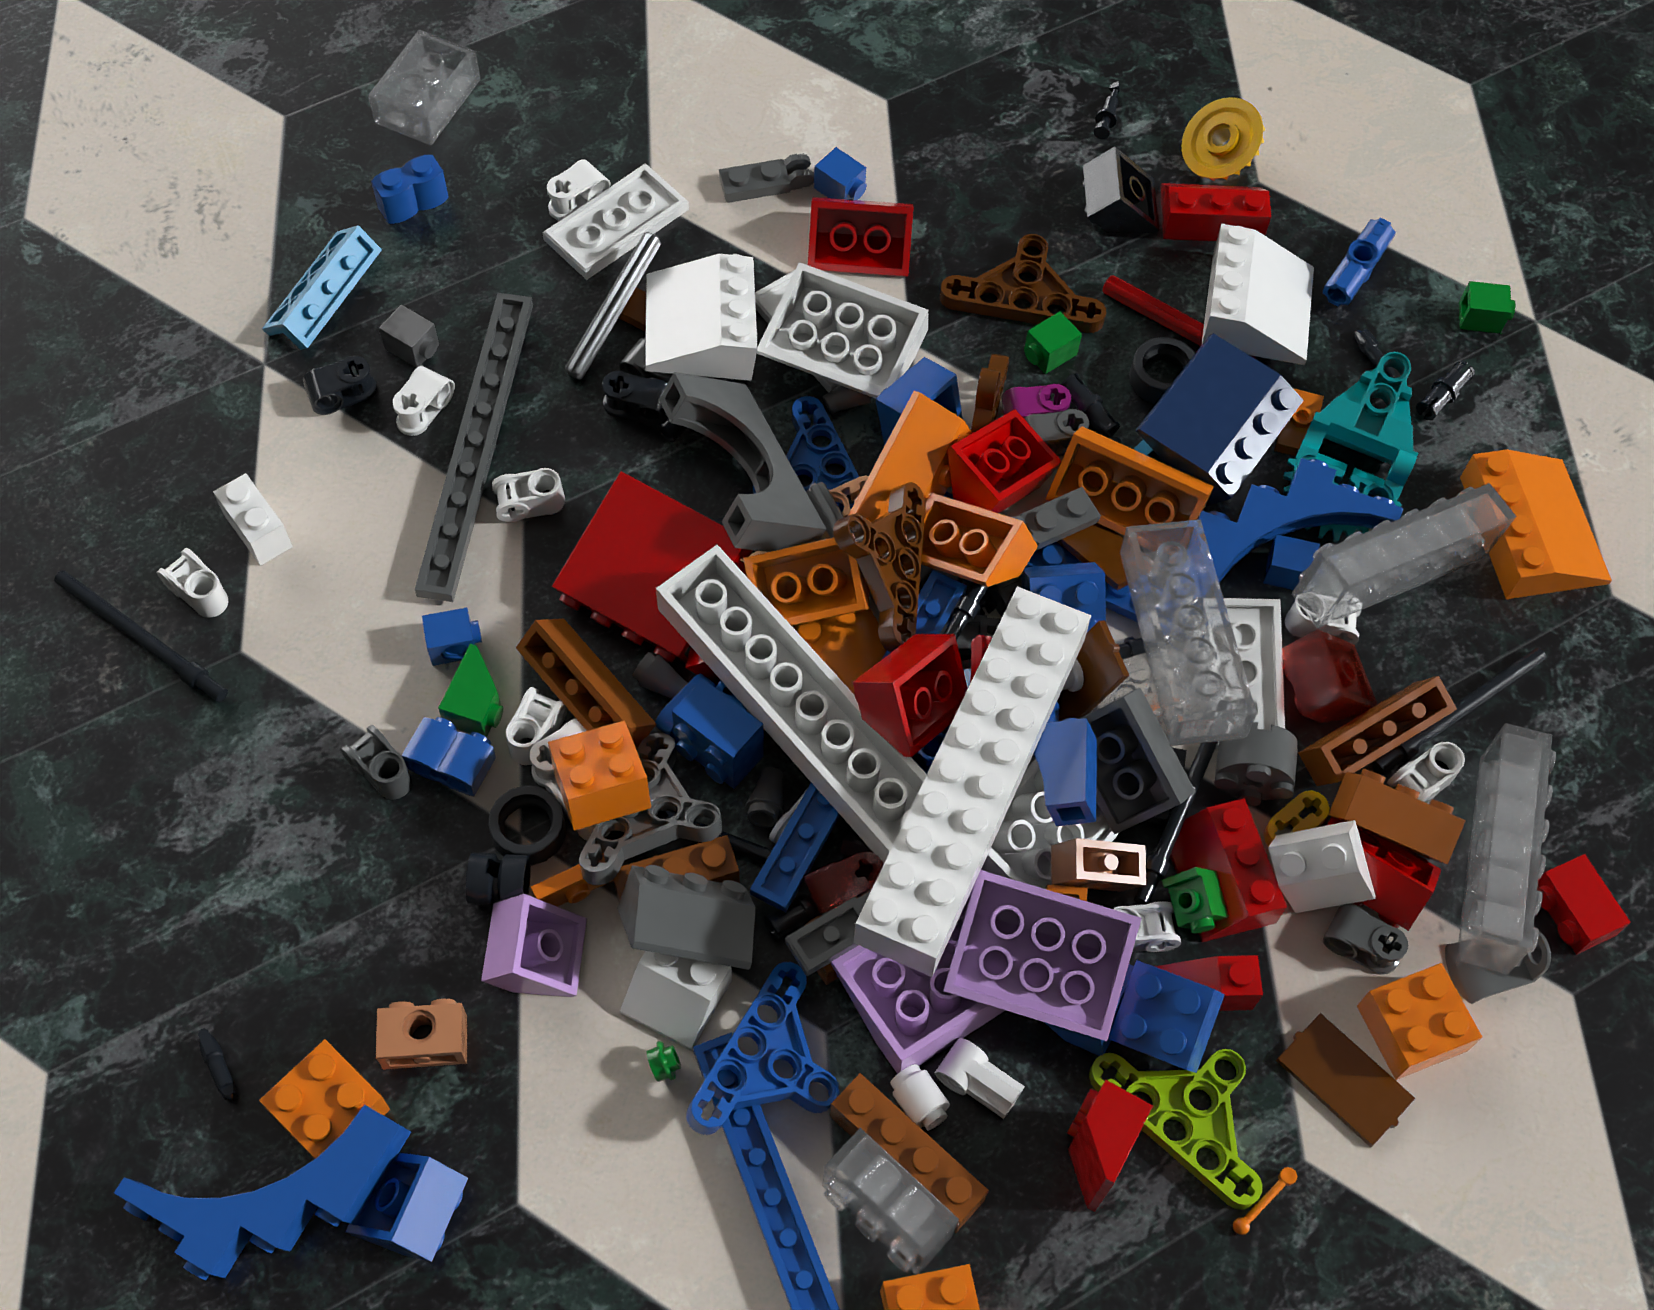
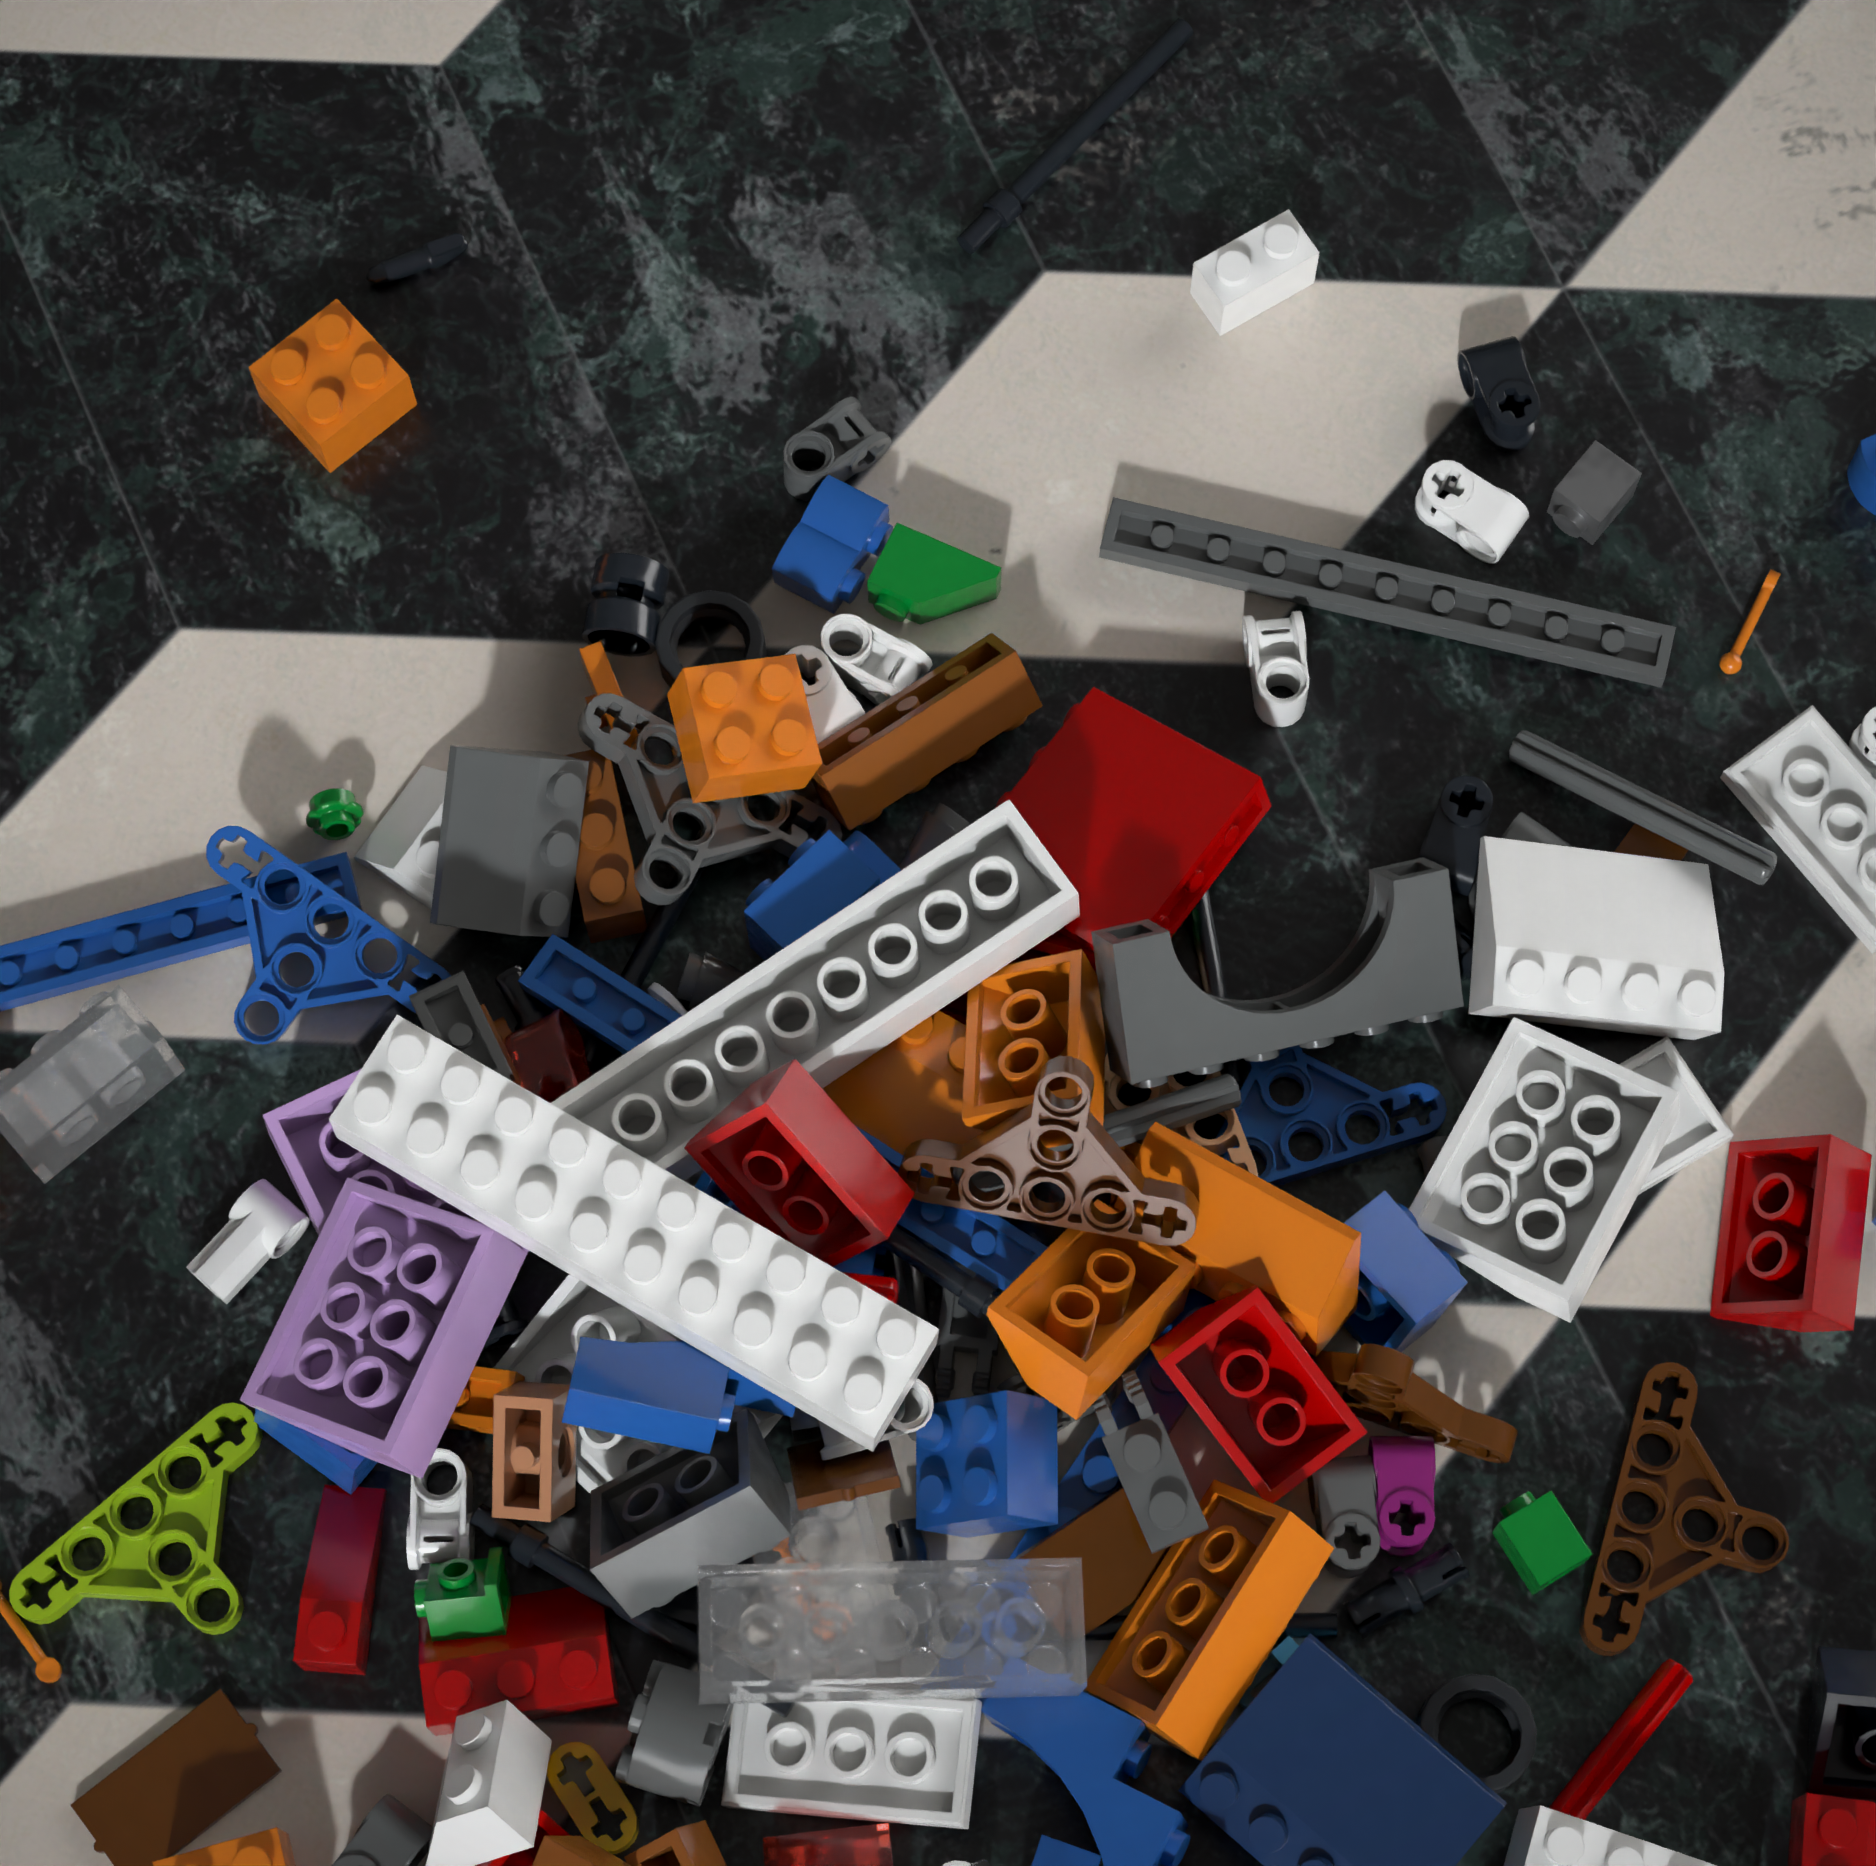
camera: 100 degrees right, 10 degrees up
(191, 580) = (1159, 193): white piece -> none
(323, 287) = (1703, 366): dark azure fence -> none
(336, 1182) = (192, 325): blue arch -> none
(411, 1207) = (186, 487): slope -> none
(441, 1047) = (404, 475): nougat brick -> none
(450, 635) = (1030, 548): blue brick -> none
(465, 256) = (1731, 662): none -> orange hinge
(534, 947) = (519, 652): lavender slope -> none
(868, 1108) = (154, 1126): dark orange brick -> none
(920, 1097) = (232, 1155): white brick -> none
(1104, 1137) = (107, 1377): red slope -> none
(1166, 1016) = (281, 1509): blue brick -> none

